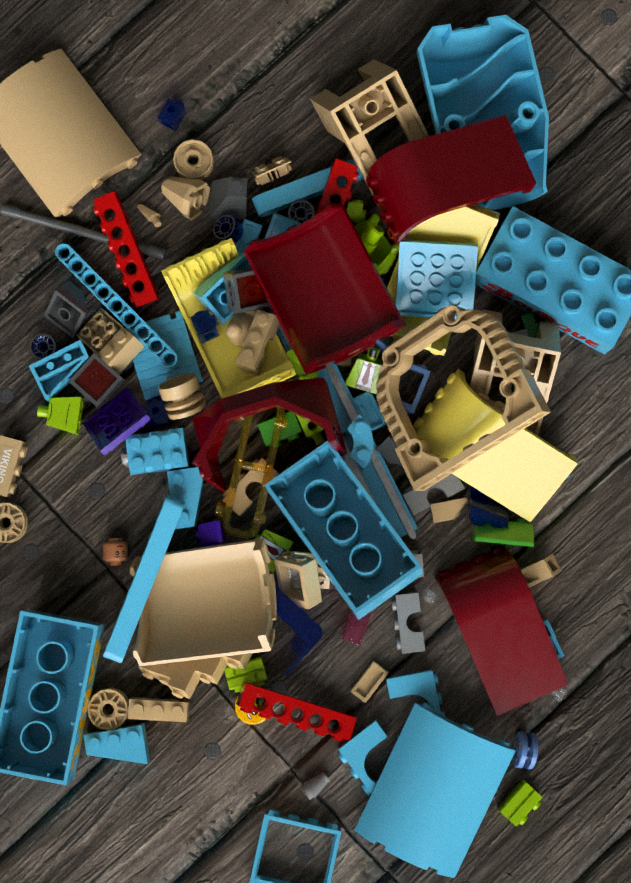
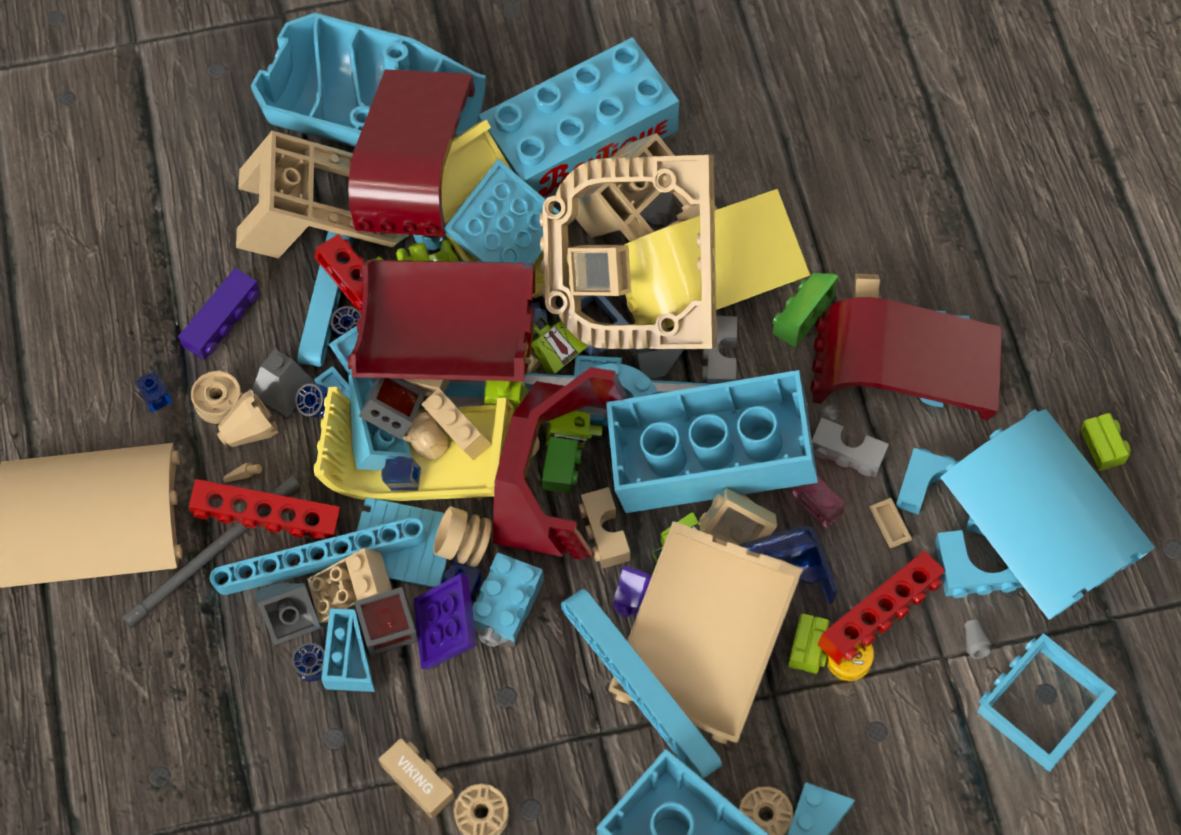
camera: 60 degrees left, 20 degrees down
(63, 413) = (398, 680): lime torso -> none
(115, 551) = (588, 708): nougat head -> none
(158, 709) = (798, 757): tan brick -> none
(184, 675) = (774, 702): tan arch -> none
(187, 486) = (561, 584): medium azure wedge -> none
(224, 509) = (613, 560): clear yellow bar -> none
(256, 120) = (219, 314): none -> dark purple brick
(279, 163) = (283, 321): tan hinge -> none
(425, 375) = (599, 270): none -> window
(447, 510) = (749, 350): tan slope -> none
(486, 510) = (770, 308): slope -> none
(526, 750) = (1053, 399): medium blue head -> none
(559, 694) = (1007, 345): clear plate -> none

